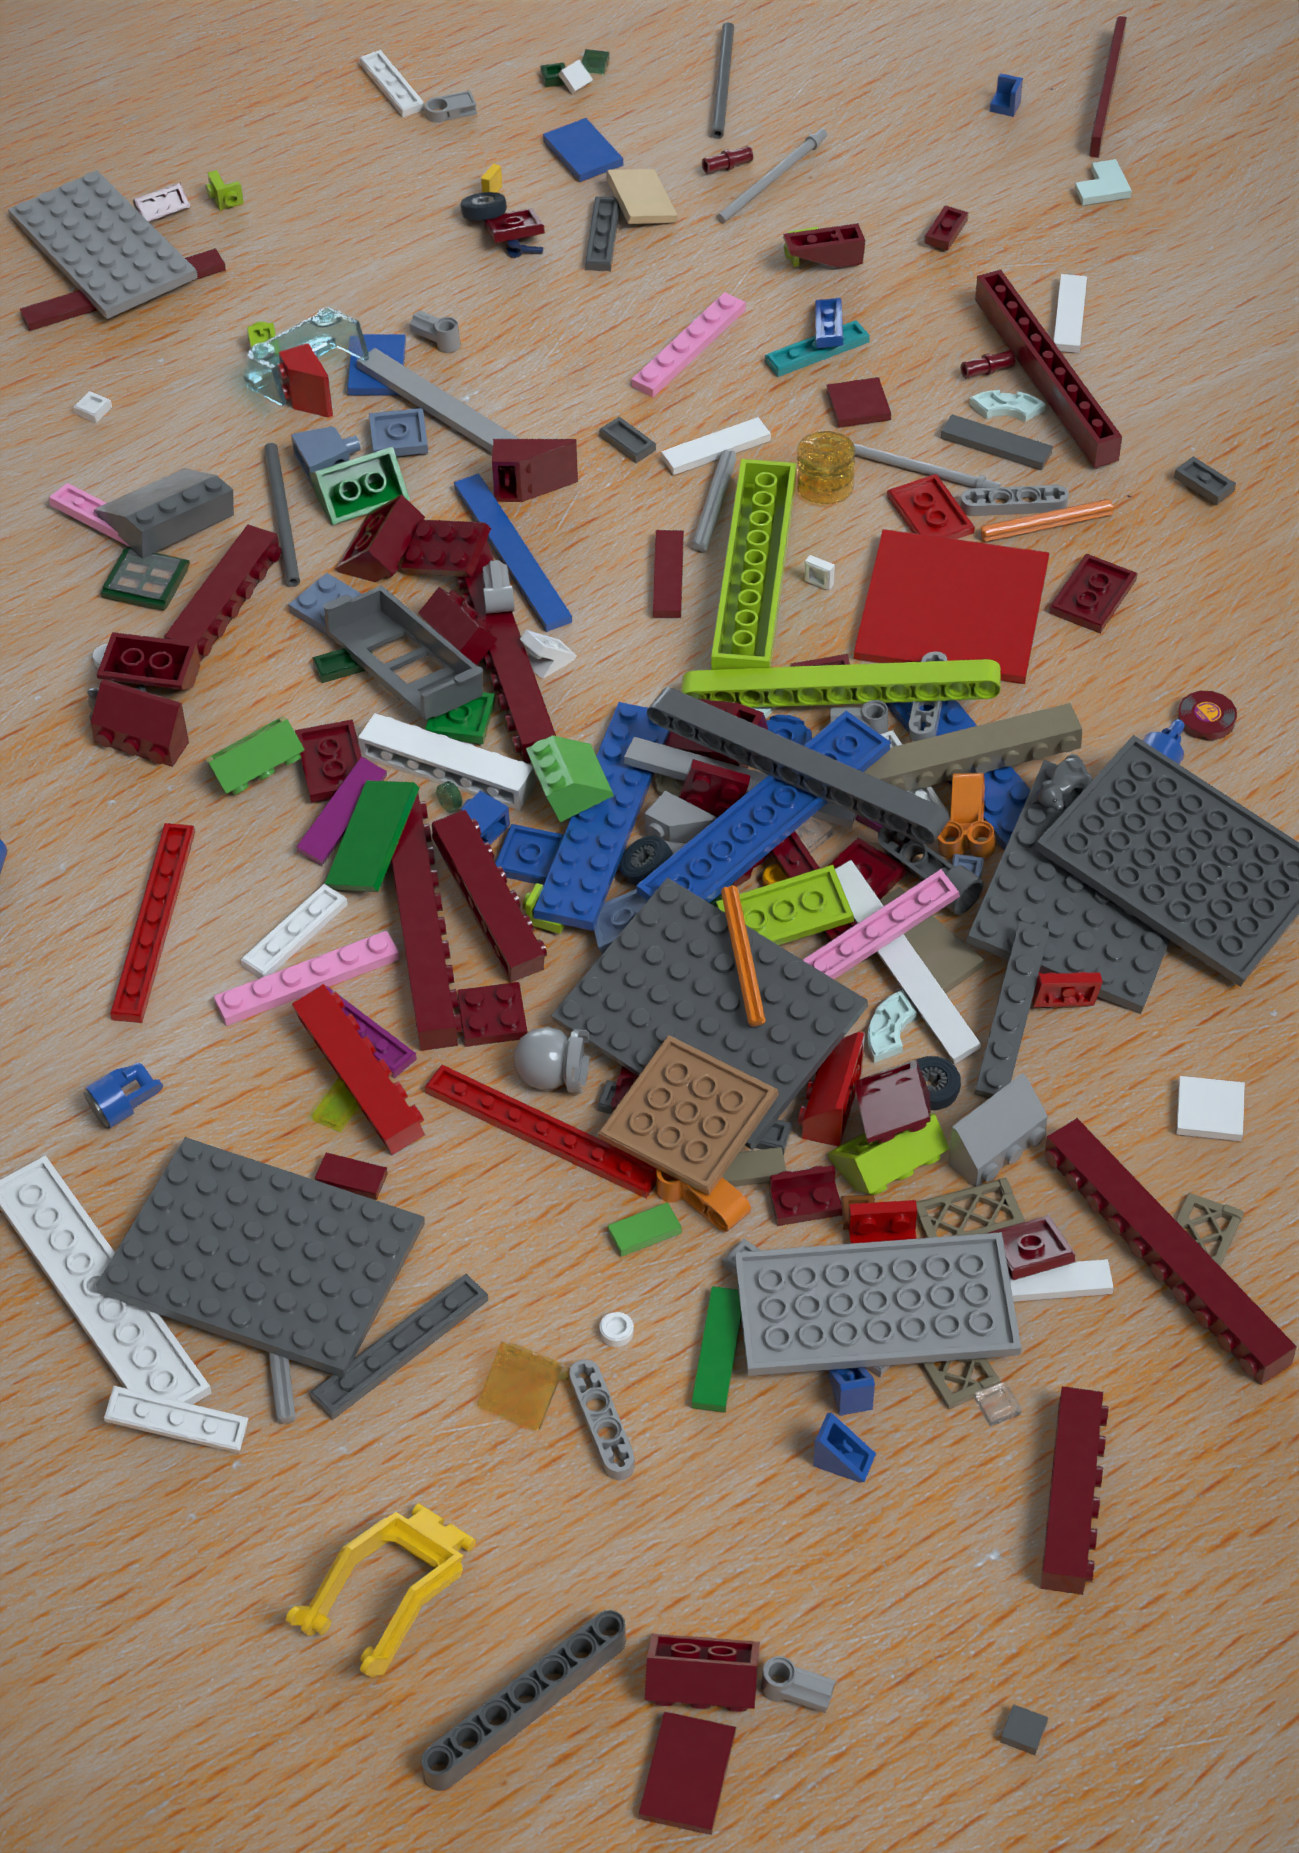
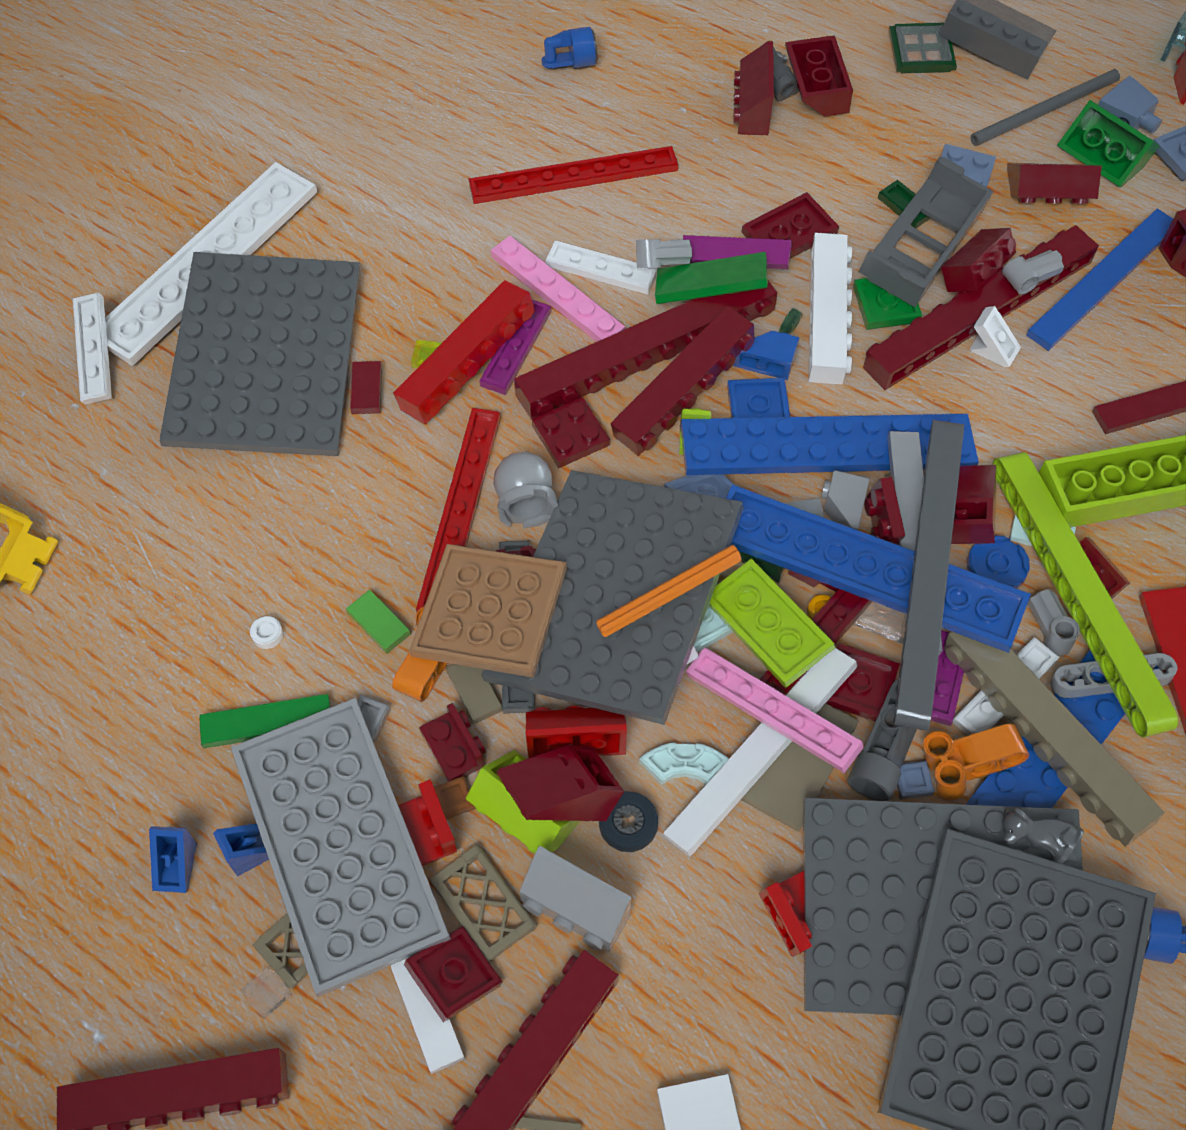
camera: 70 degrees right, 10 degrees up
(109, 1100) = (380, 205): blue piece -> none
(226, 589) = (930, 97): dark red brick -> none
(256, 755) = (762, 173): bright green slope -> none
(282, 1388) = (141, 411): light grey axle -> none
(318, 867) = (654, 252): none -> light grey piece
(399, 1346) = (210, 478): dark grey tile -> none
(445, 548) = (1065, 221): dark red plate -> none
(521, 1384) = (193, 574): clear yellow bracket -> none
(569, 775) = (846, 395): bright green slope -> none
(599, 1419) = (172, 653): light grey beam -> none
(643, 858) = (787, 488): black bush -> none
(1012, 1009) = (735, 870): dark grey plate -> none

